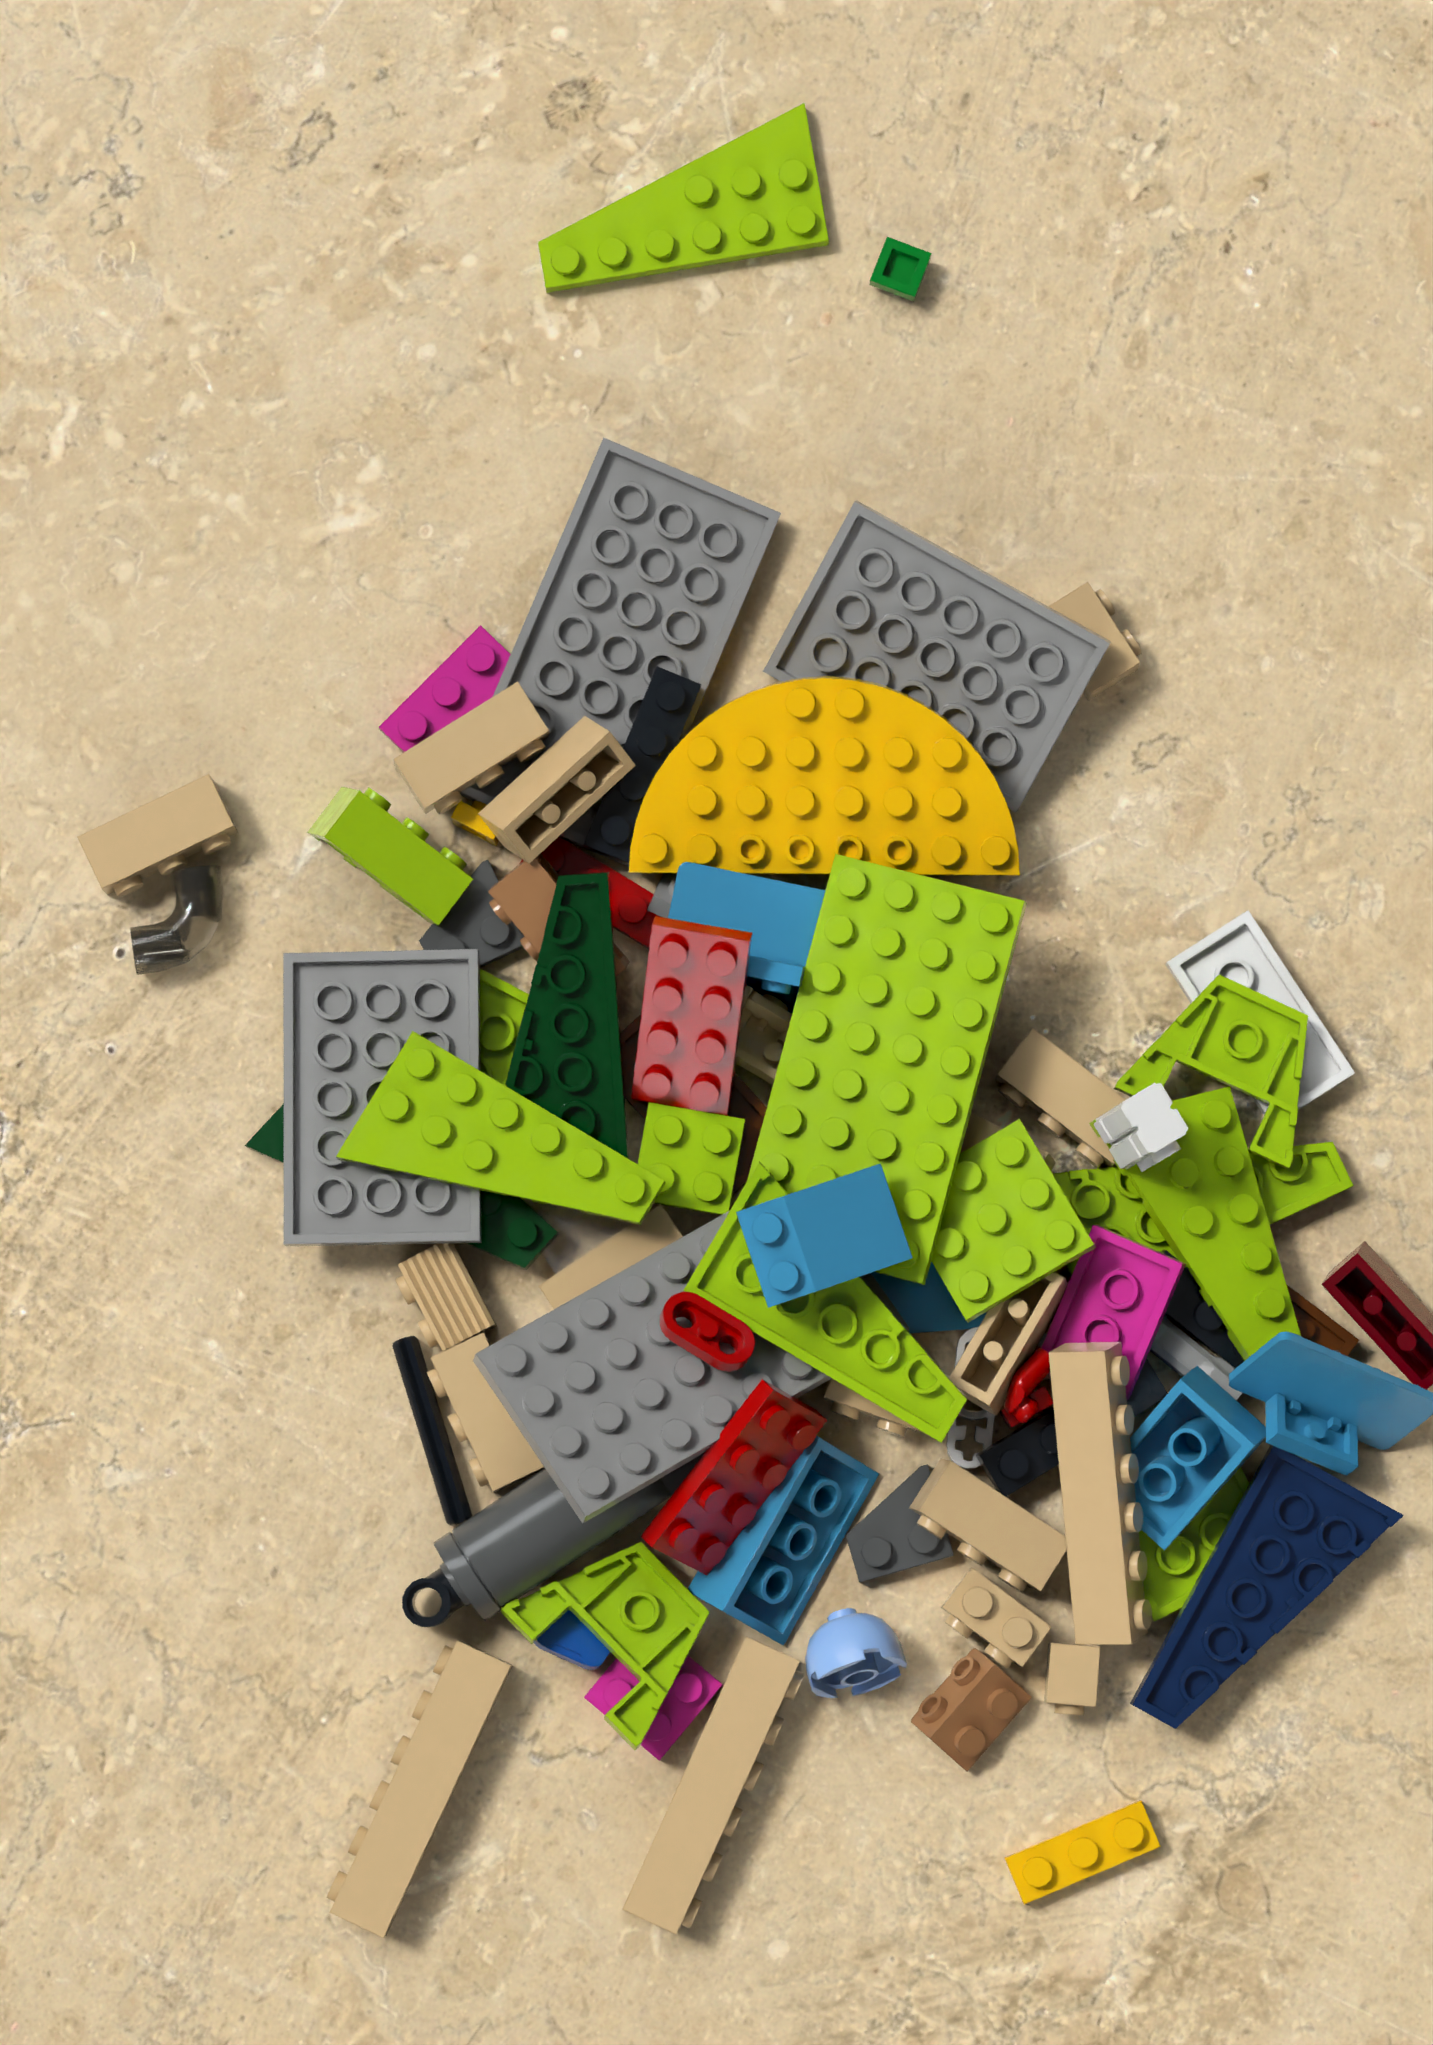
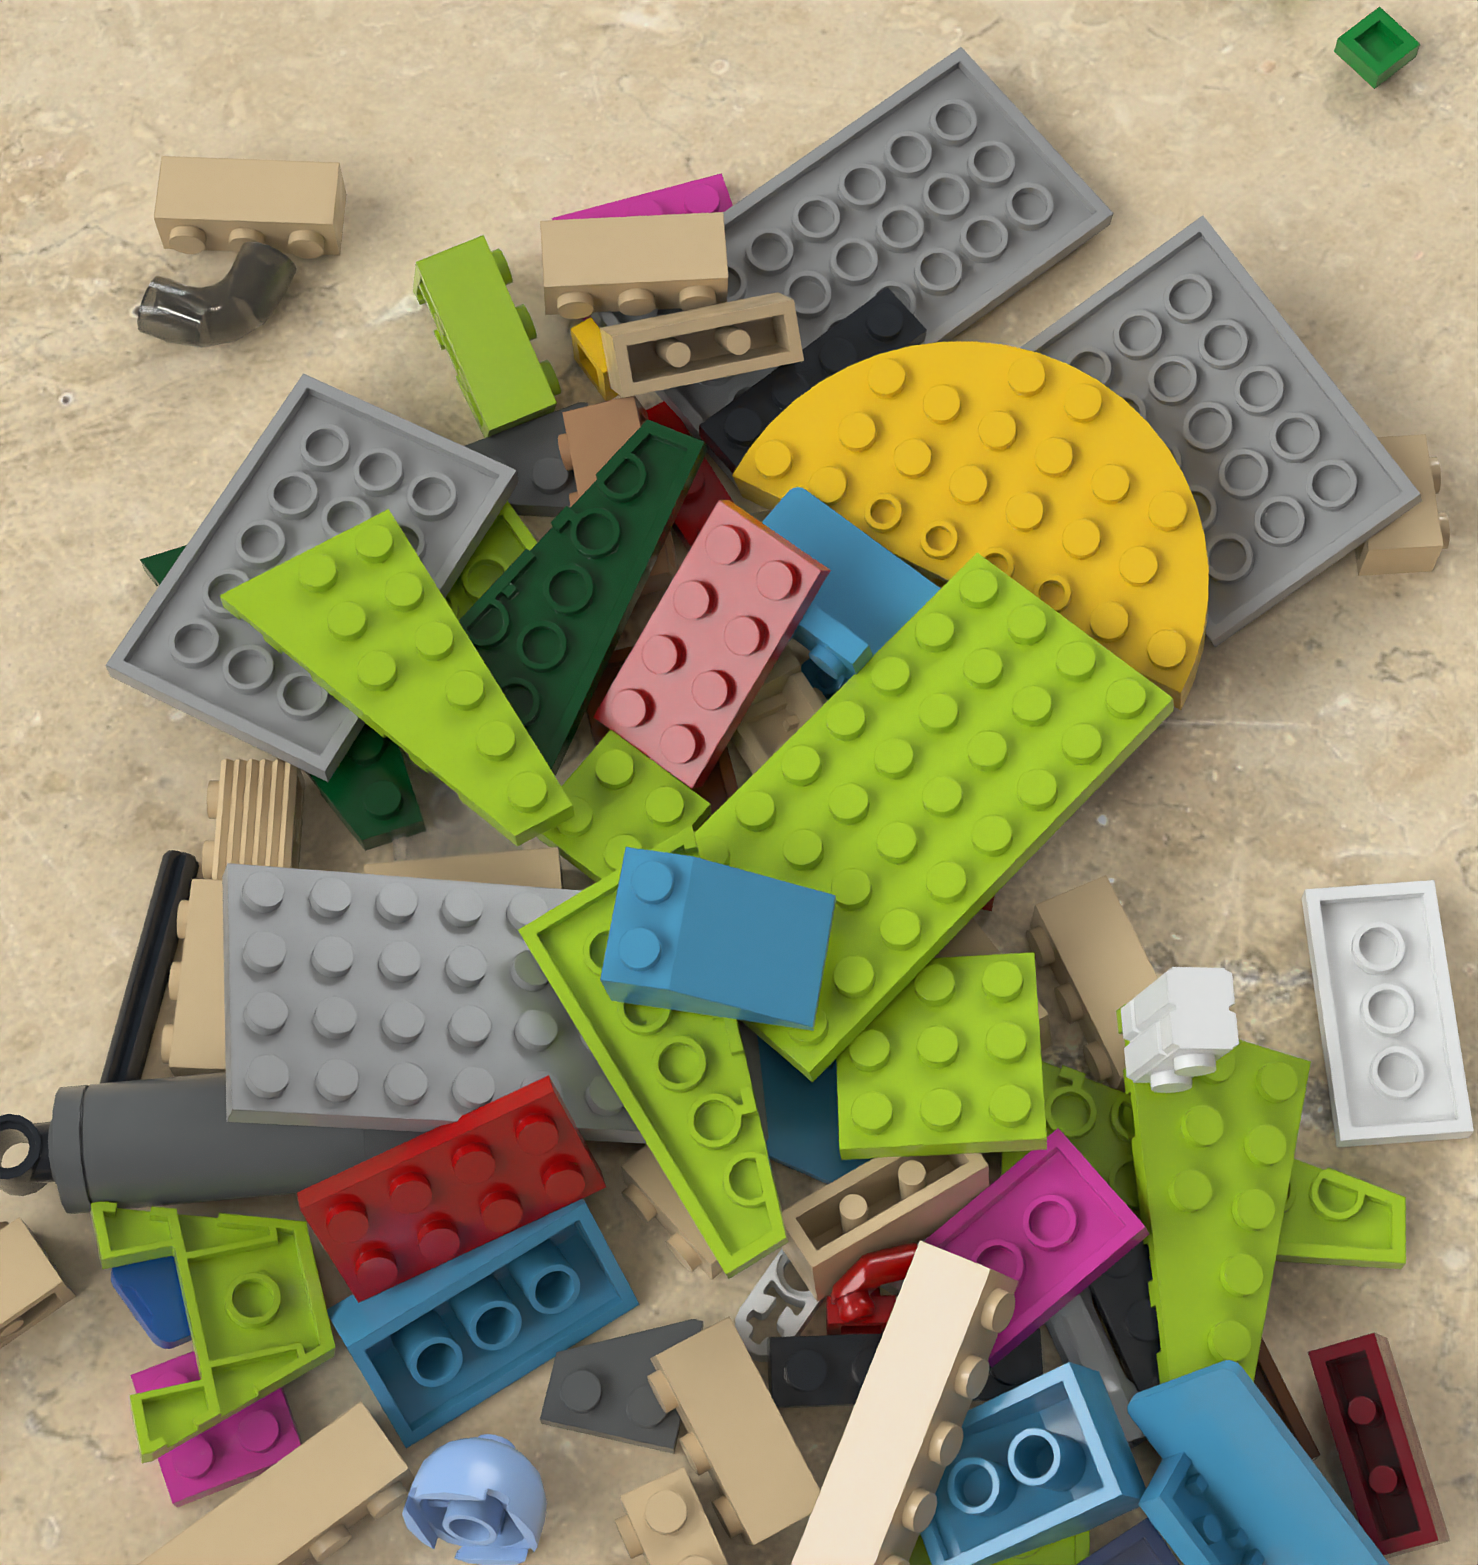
camera: 25 degrees right, 15 degrees down
(708, 1330) = (521, 992): red plate -> none
(1241, 1043) = (1358, 1026): lime wing -> none

